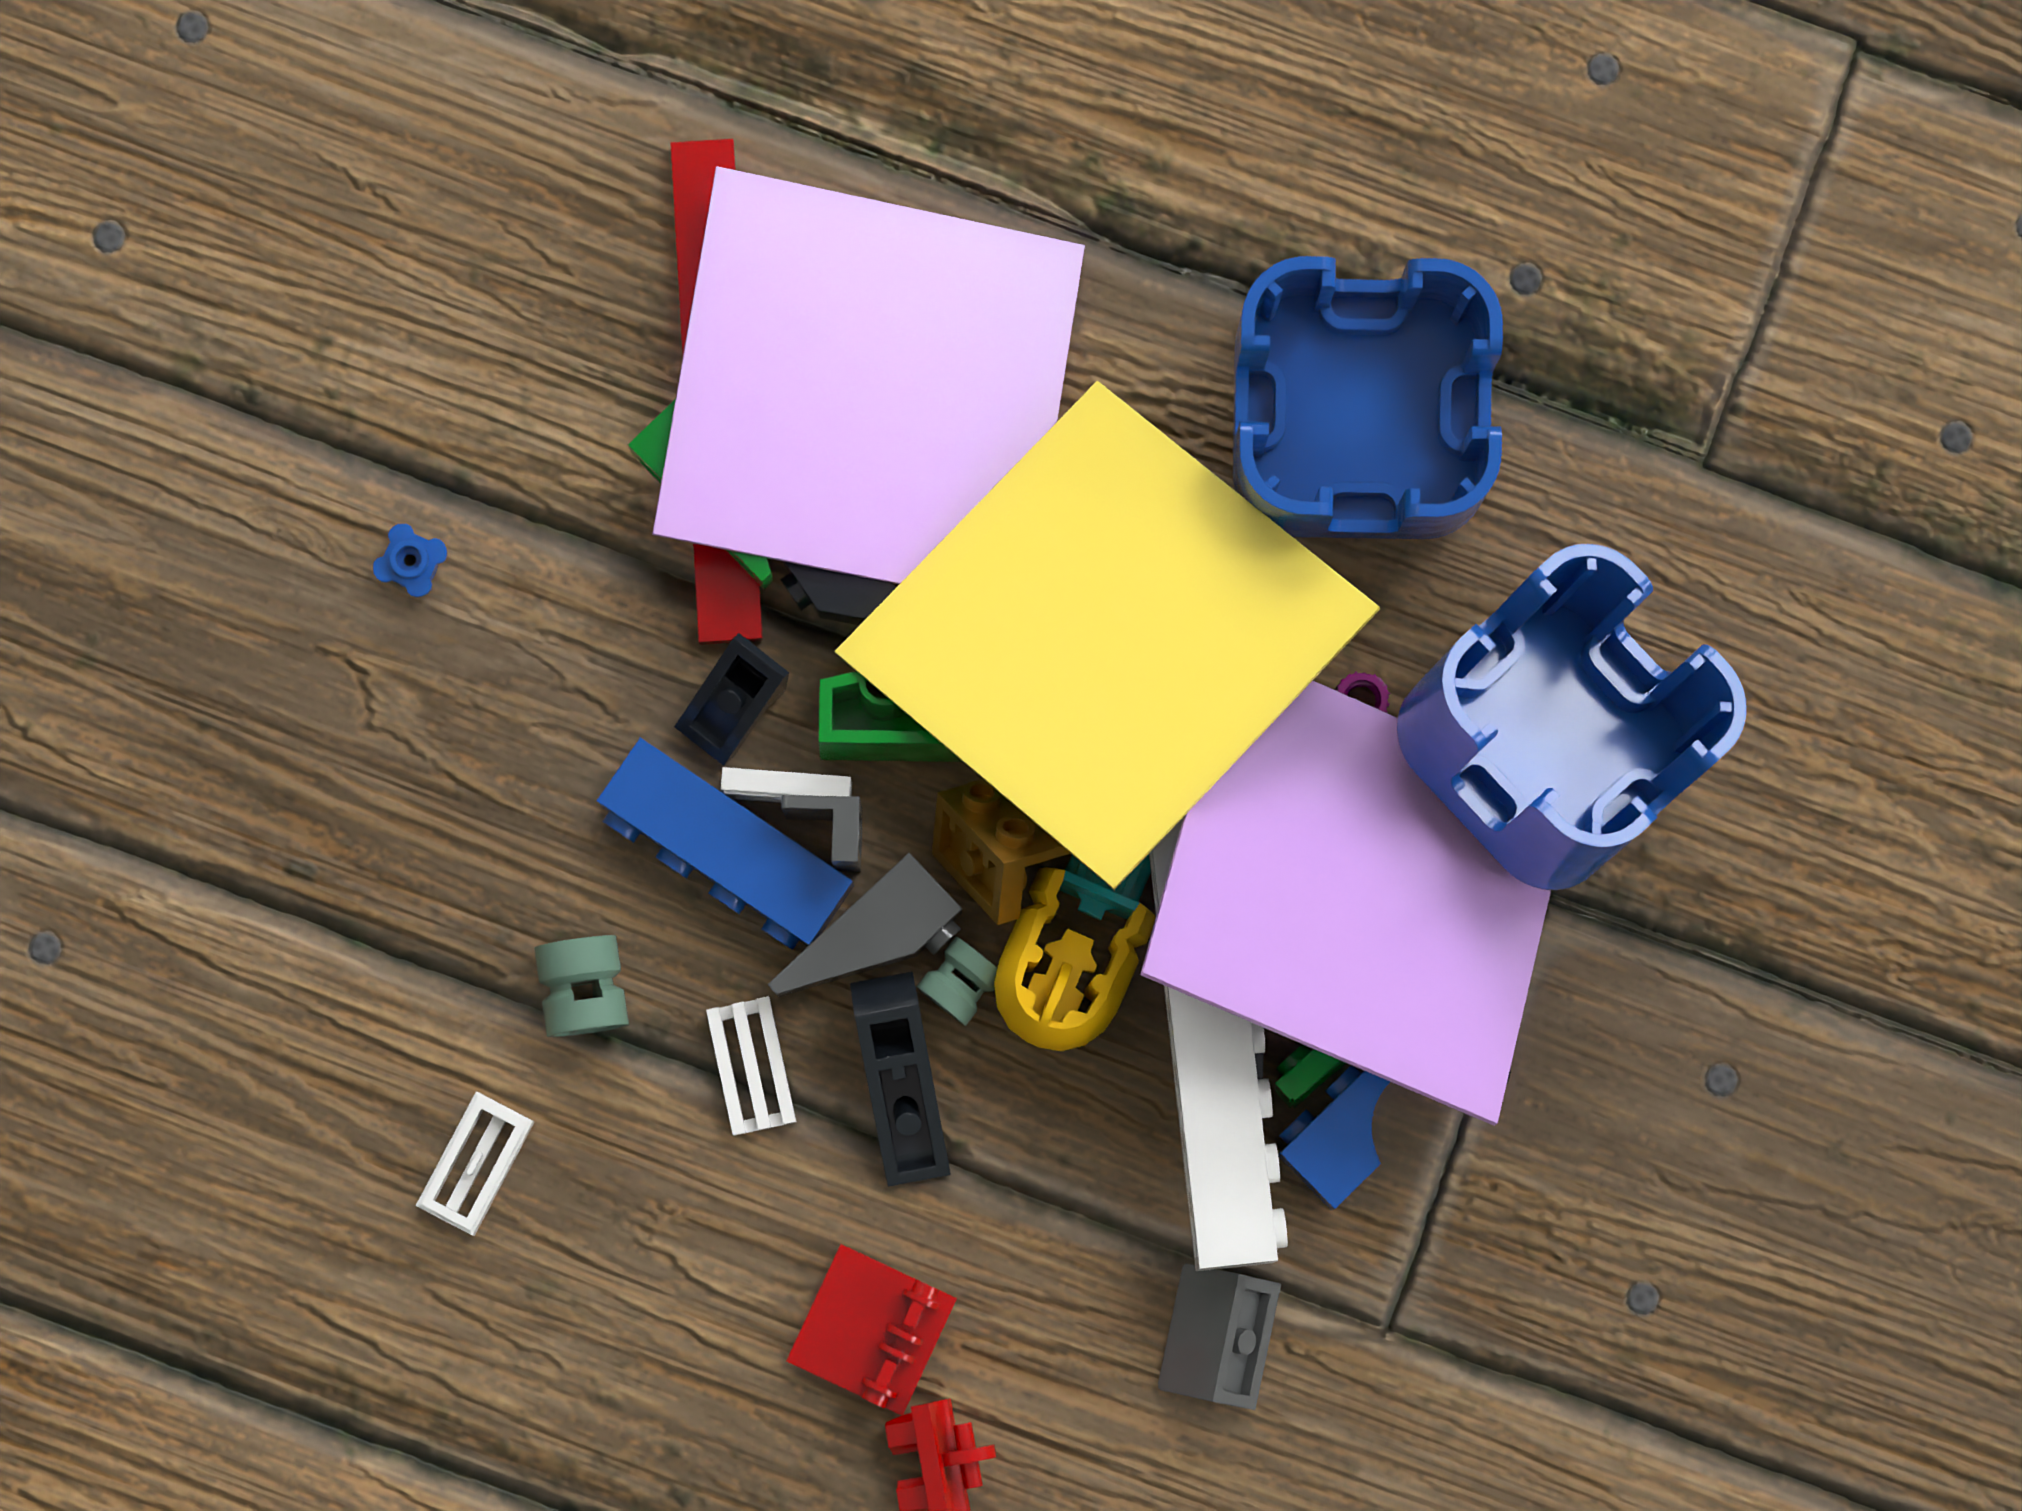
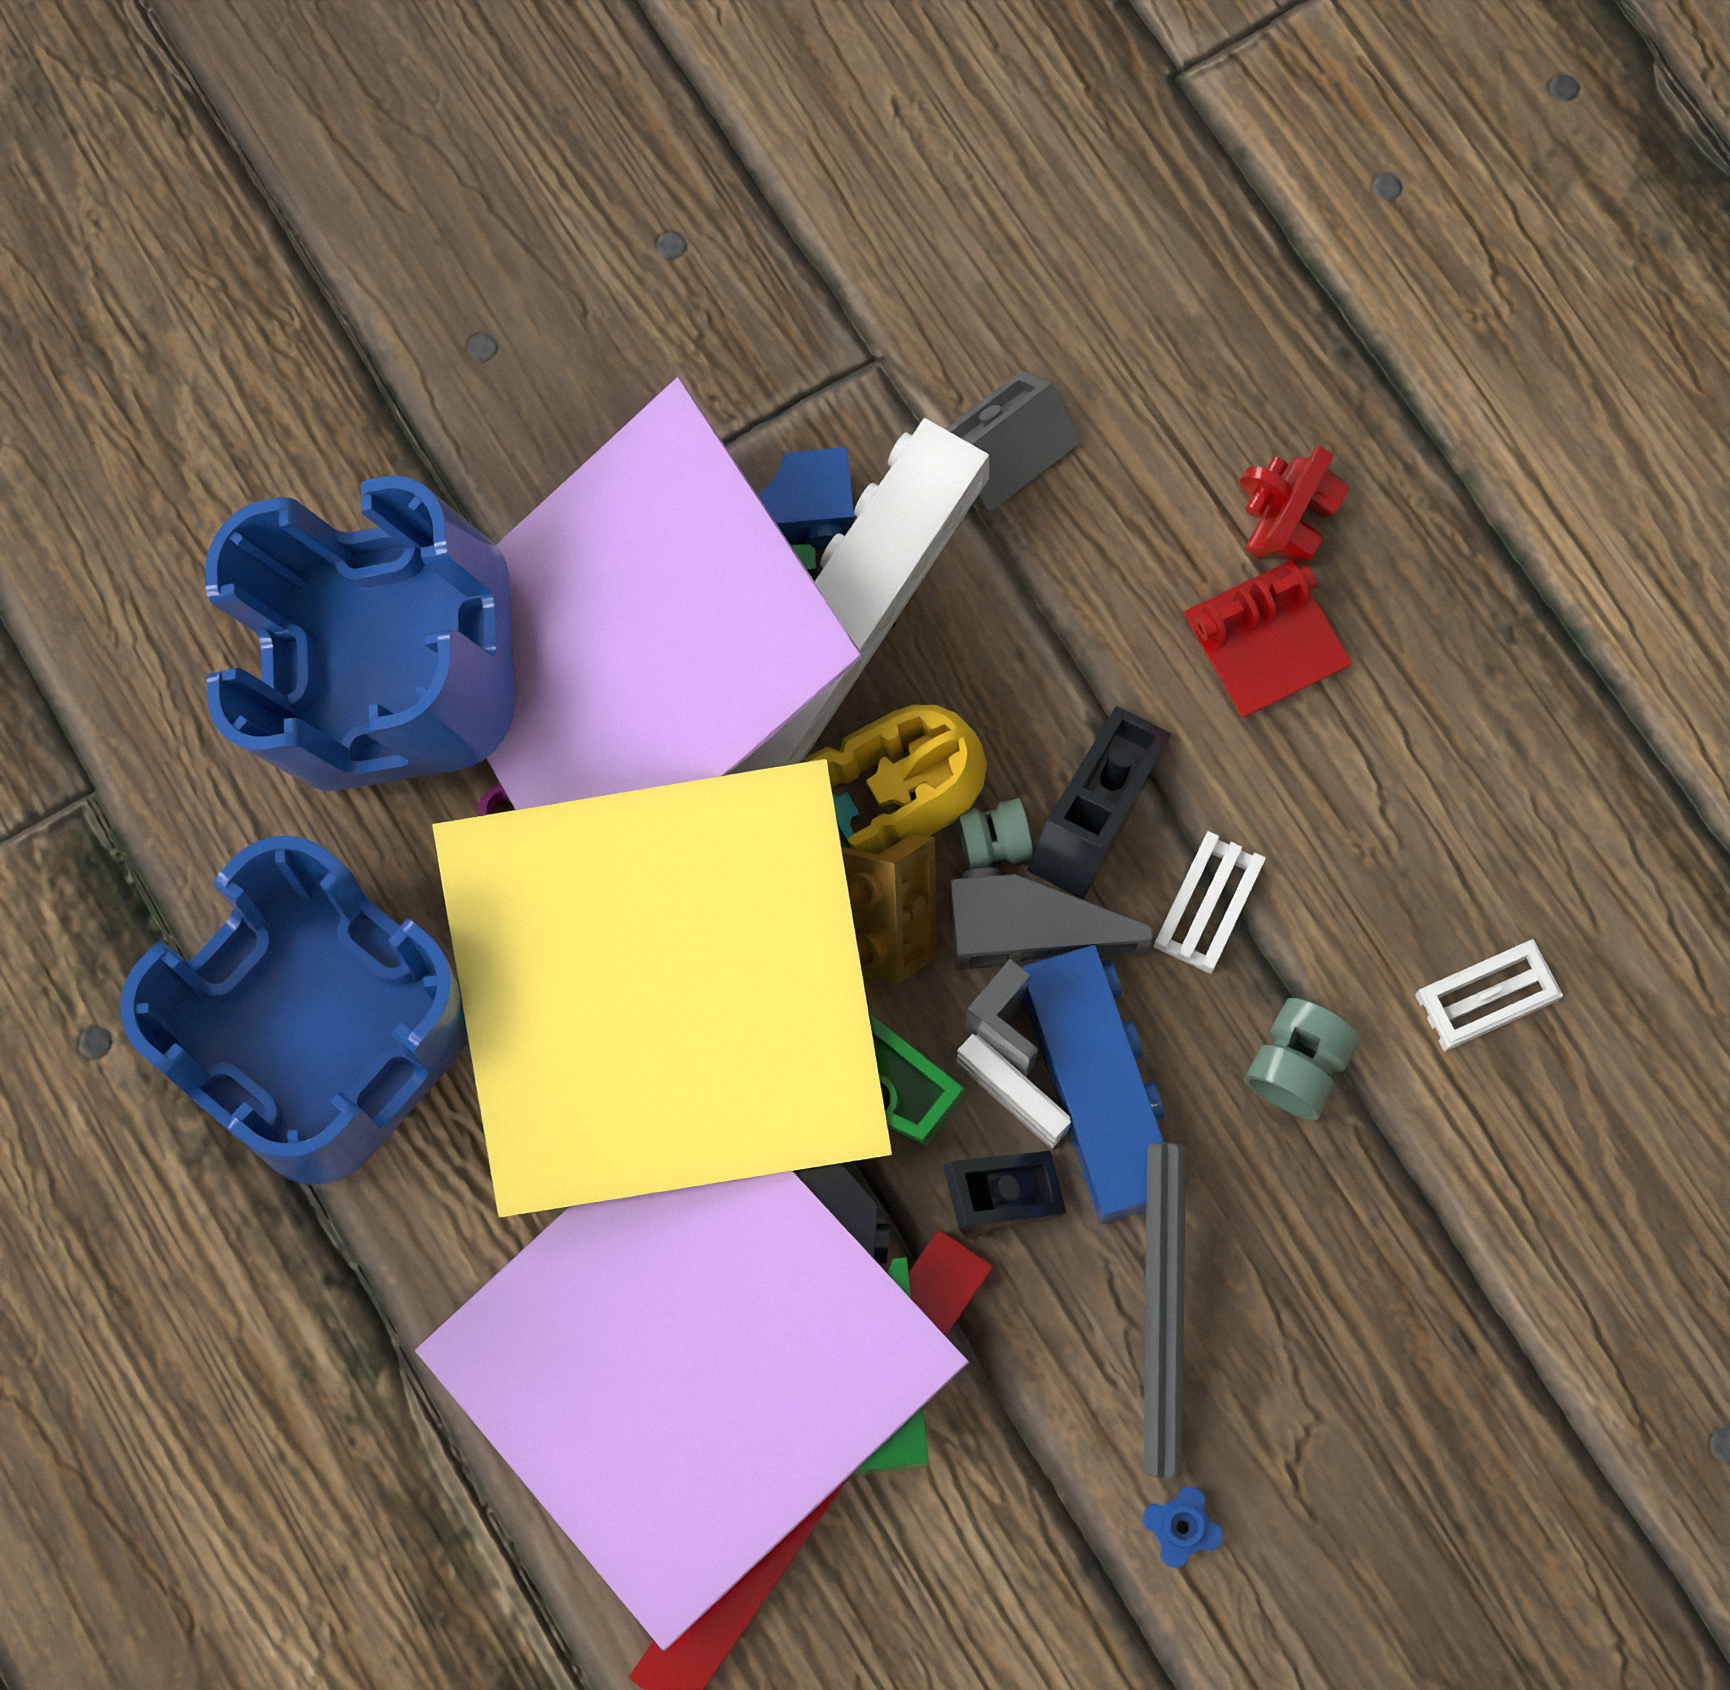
camera: 140 degrees left, 10 degrees down
(542, 704) = (1164, 1309): none -> dark grey axle

